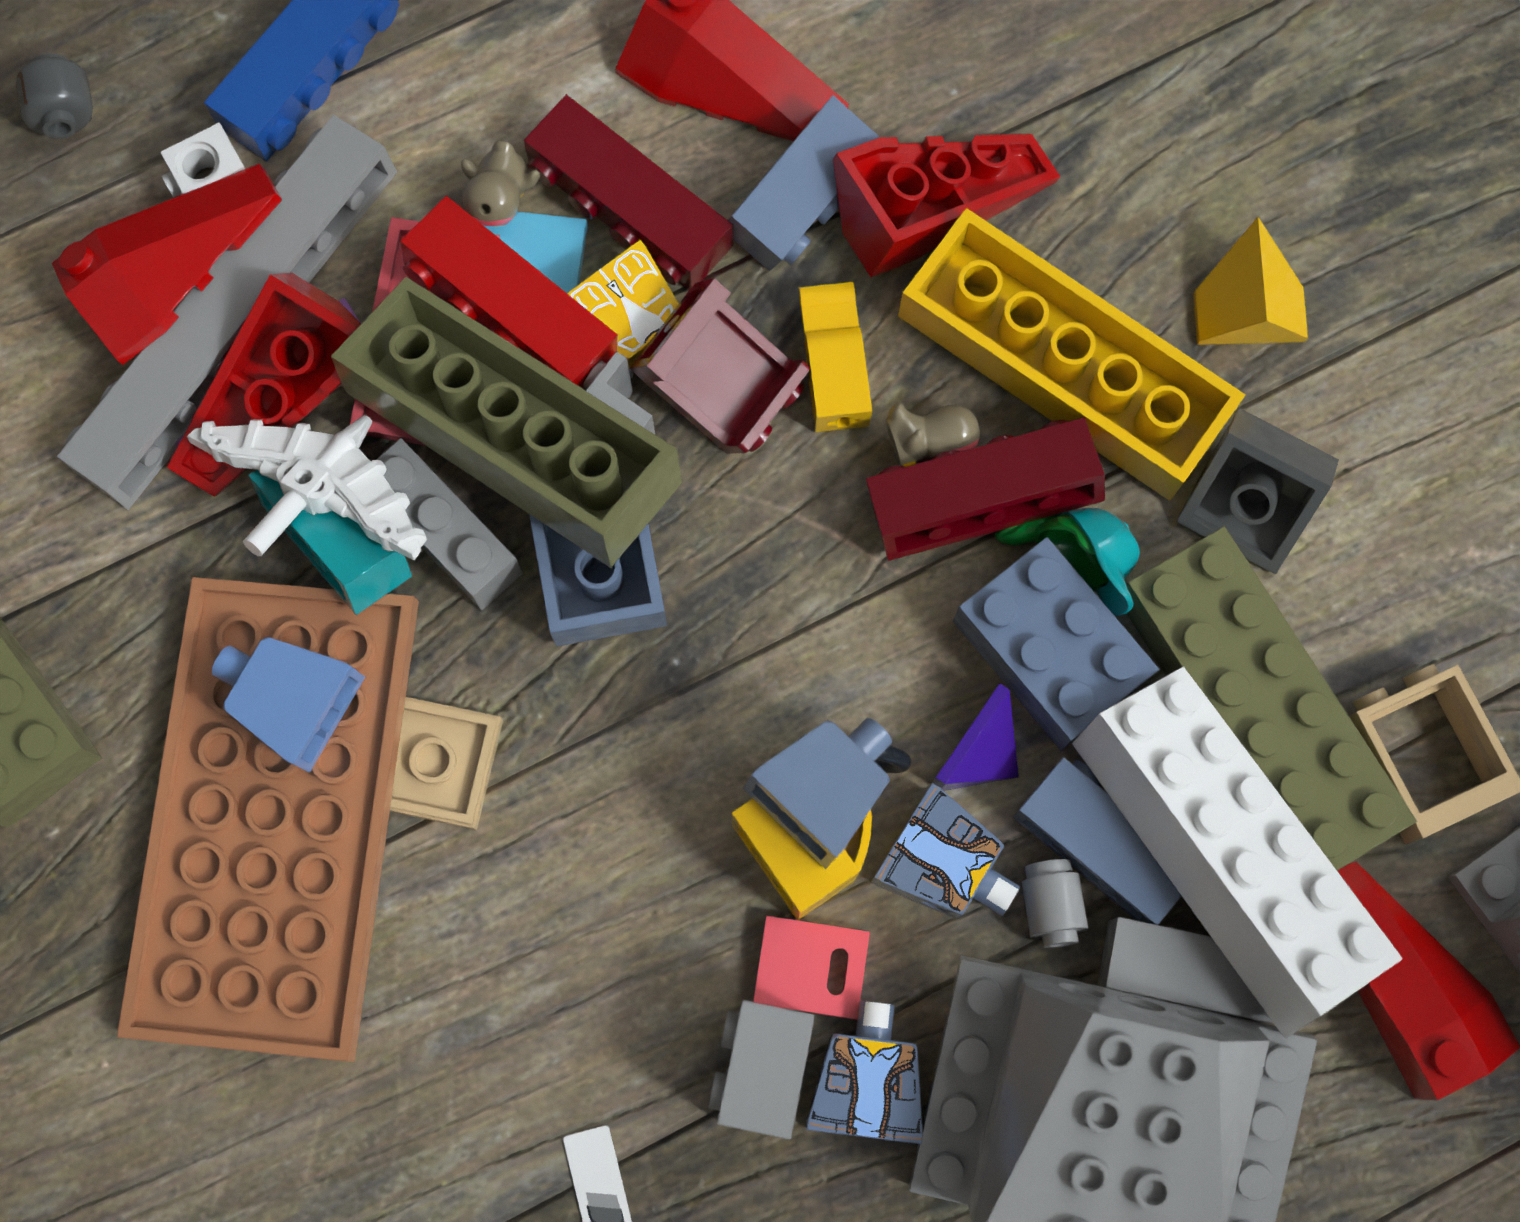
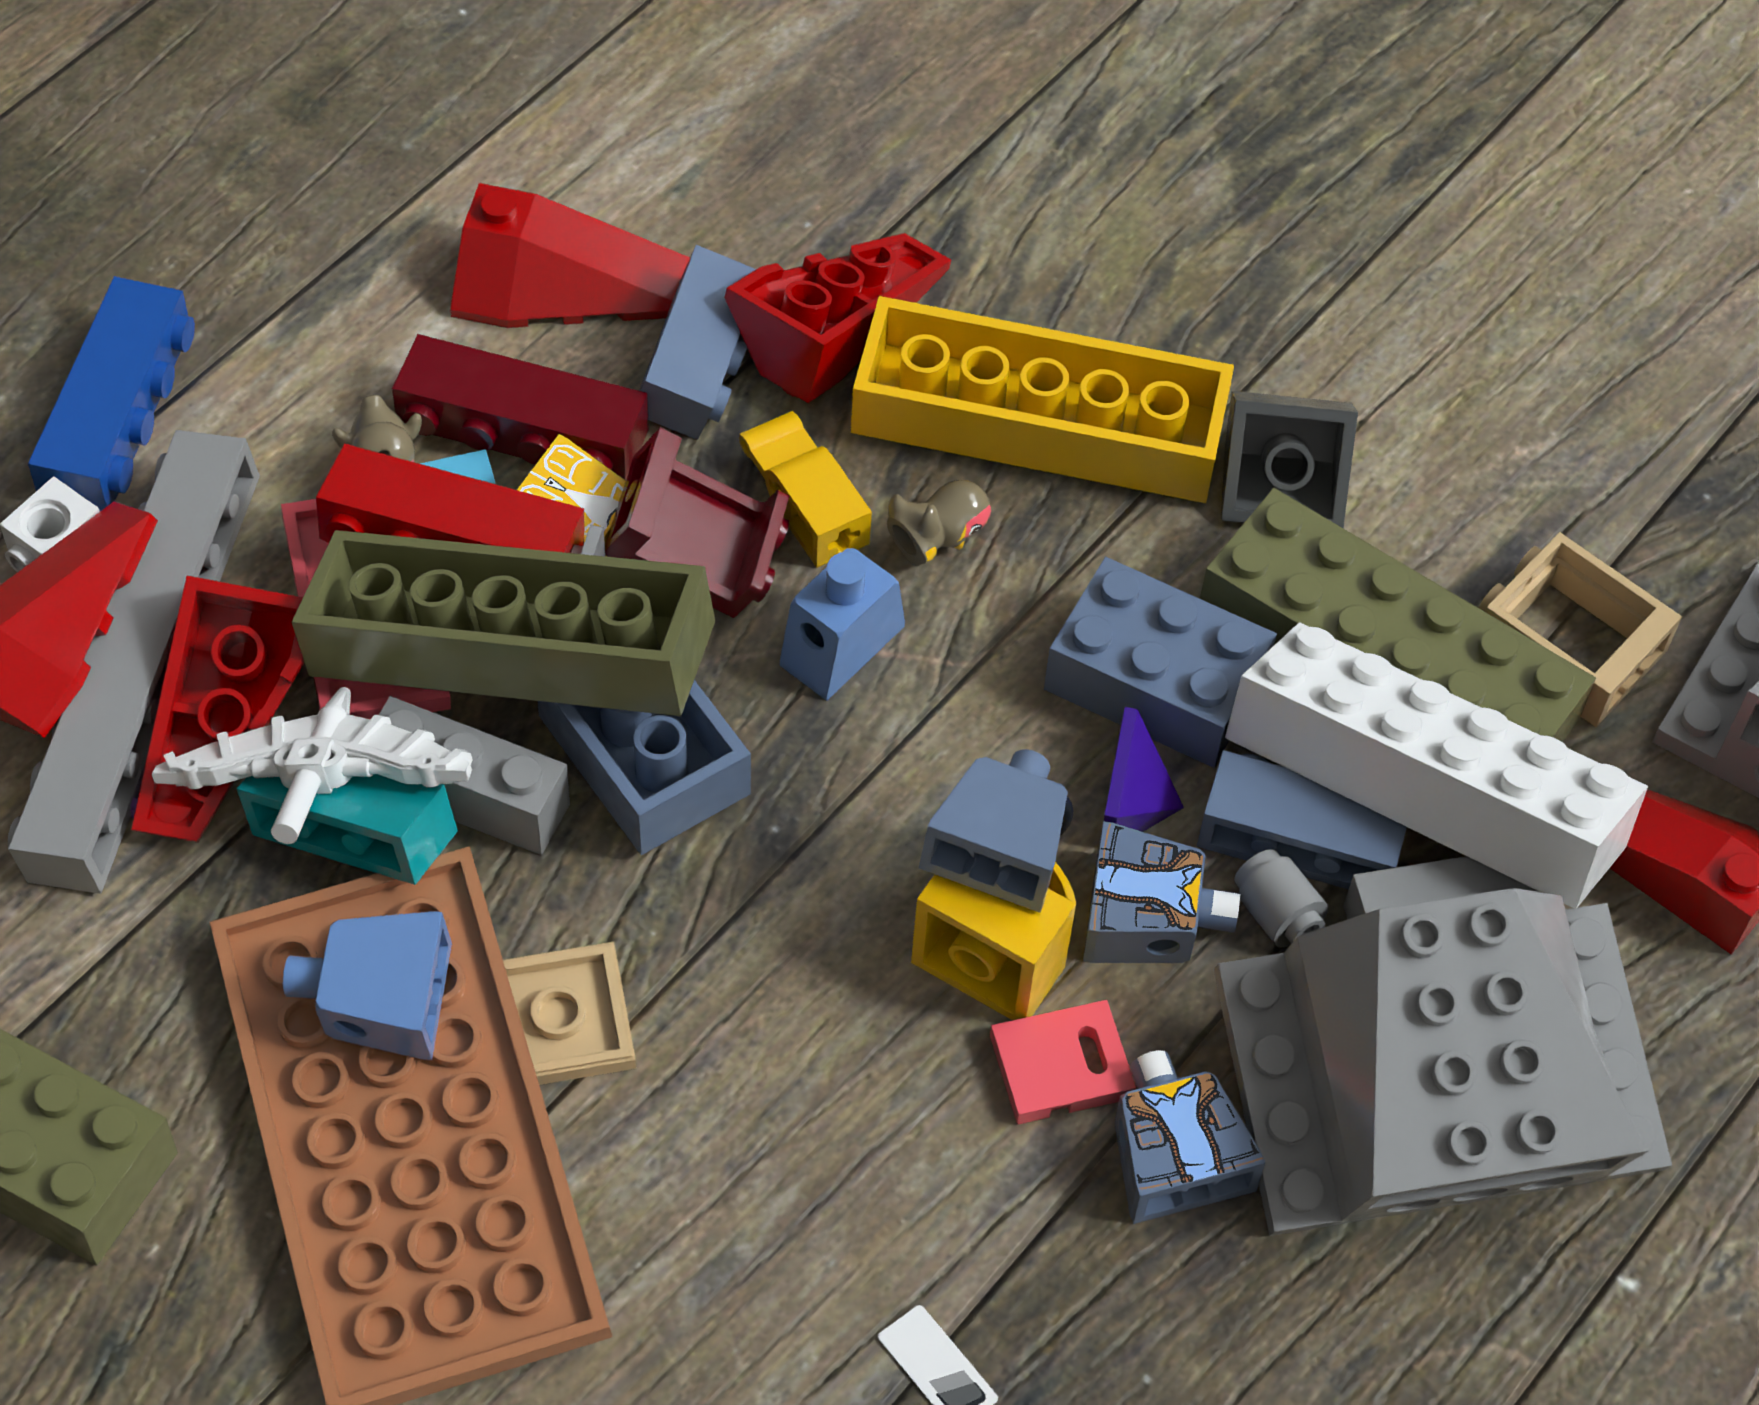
camera: 25 degrees left, 20 degrees down
(763, 1070) = (1065, 1154): light grey brick -> none
(802, 505) = (841, 622): none -> medium blue torso
(986, 488) = (1020, 543): dark red brick -> none
(1093, 544) = (1150, 545): hair -> none
(1251, 295) = (1191, 297): yellow slope -> none

